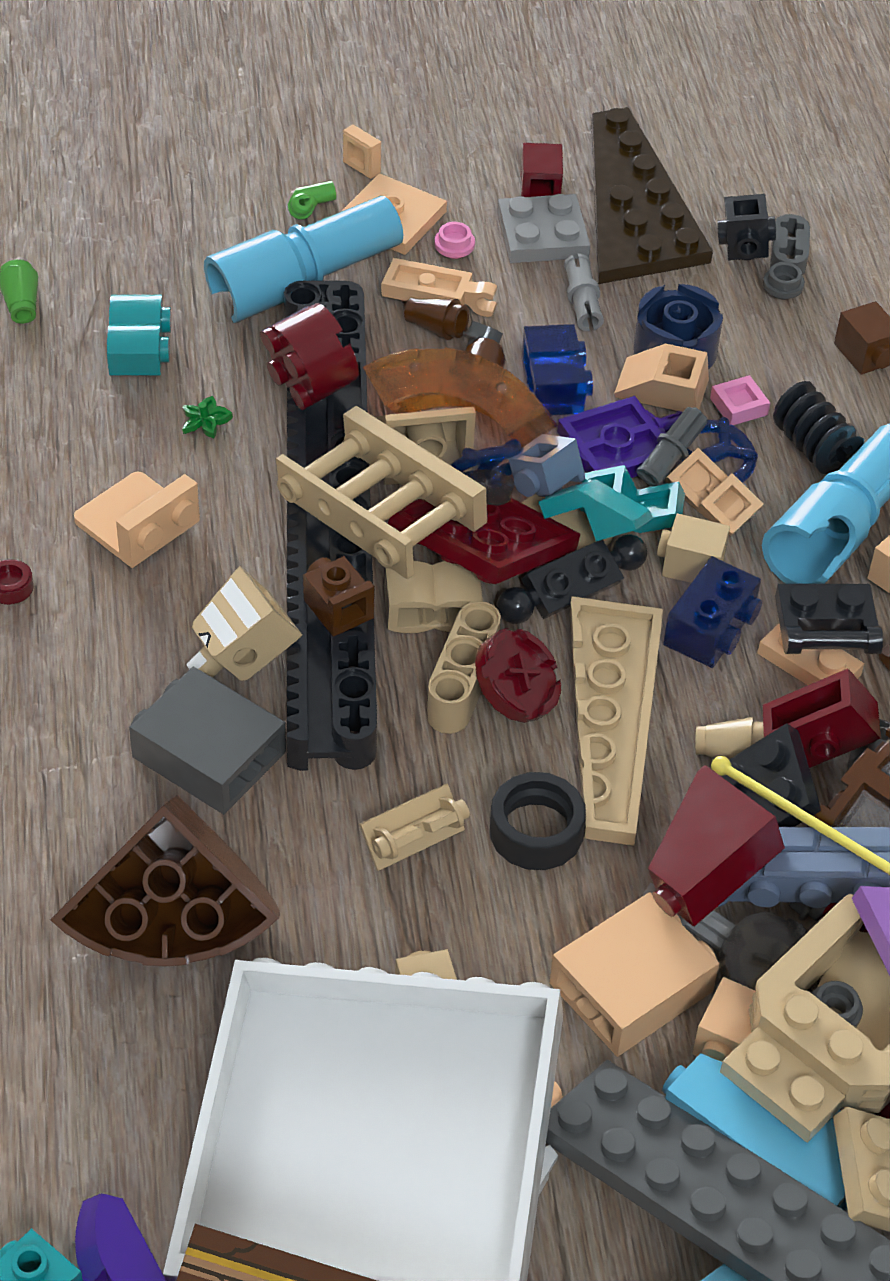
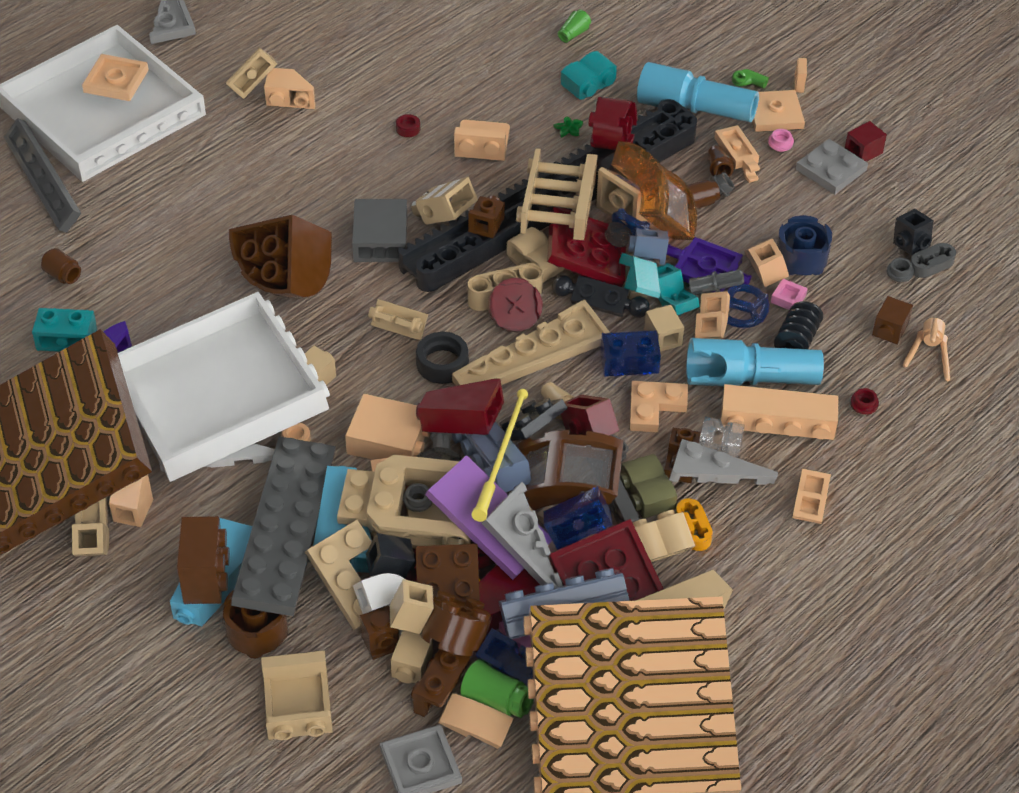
camera: 55 degrees right, 0 degrees up
(555, 368) = (726, 225): clear blue piece -> none
(583, 292) = (799, 202): light grey pin -> none
(637, 208) = (893, 189): dark brown wing -> none
(828, 617) = (669, 388): black plate -> none

